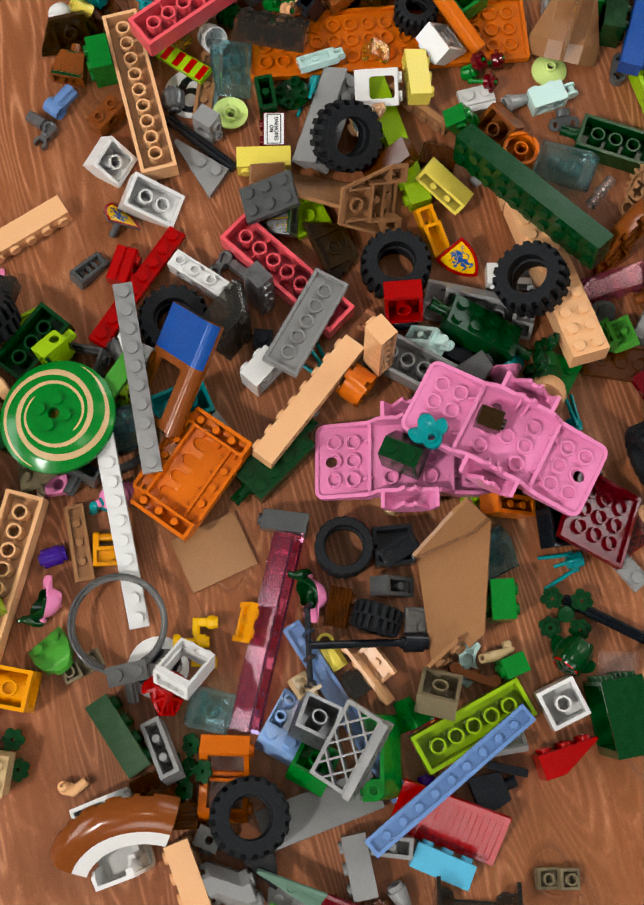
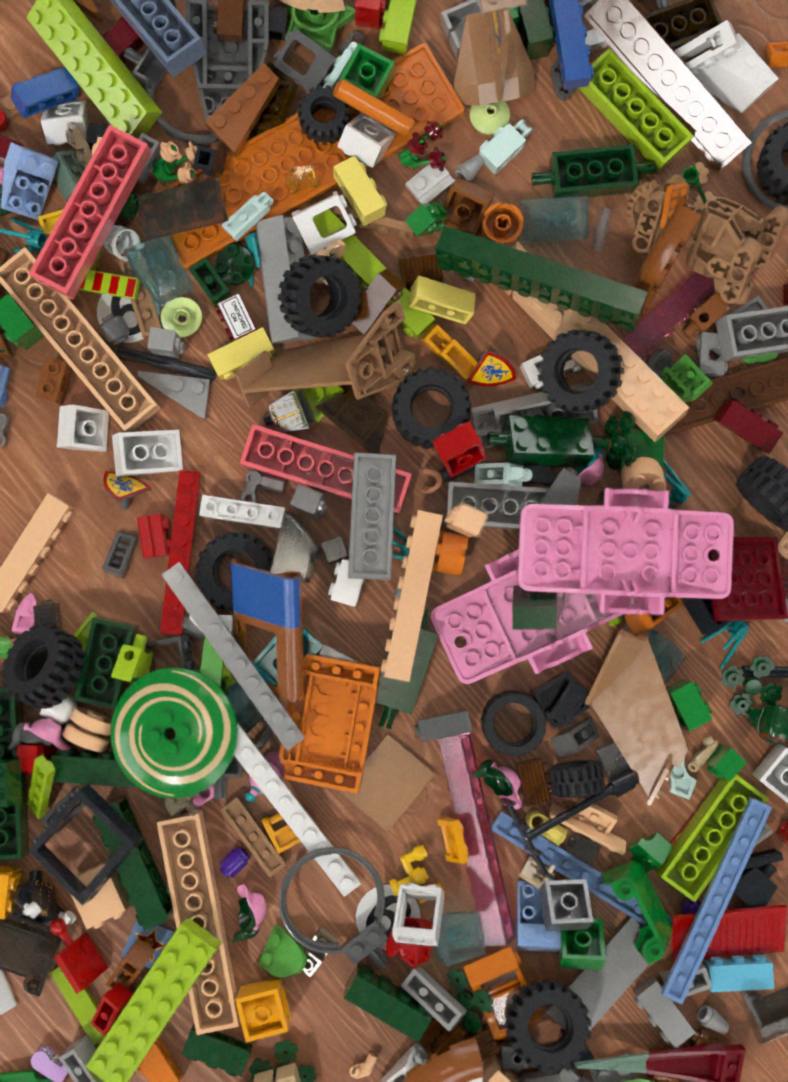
camera: 30 degrees left, 10 degrees up
(269, 197) = (272, 400): dark grey plate -> none
(364, 762) = (634, 922): light grey fence -> none
(427, 429) = (549, 581): teal plate -> none
(438, 693) = (669, 824): dark tan brick -> none
(474, 675) = (693, 787): reddish brown plate -> none
(490, 419) = (608, 545): dark brown brick -> none
(562, 117) = (528, 165): dark grey piece -> none

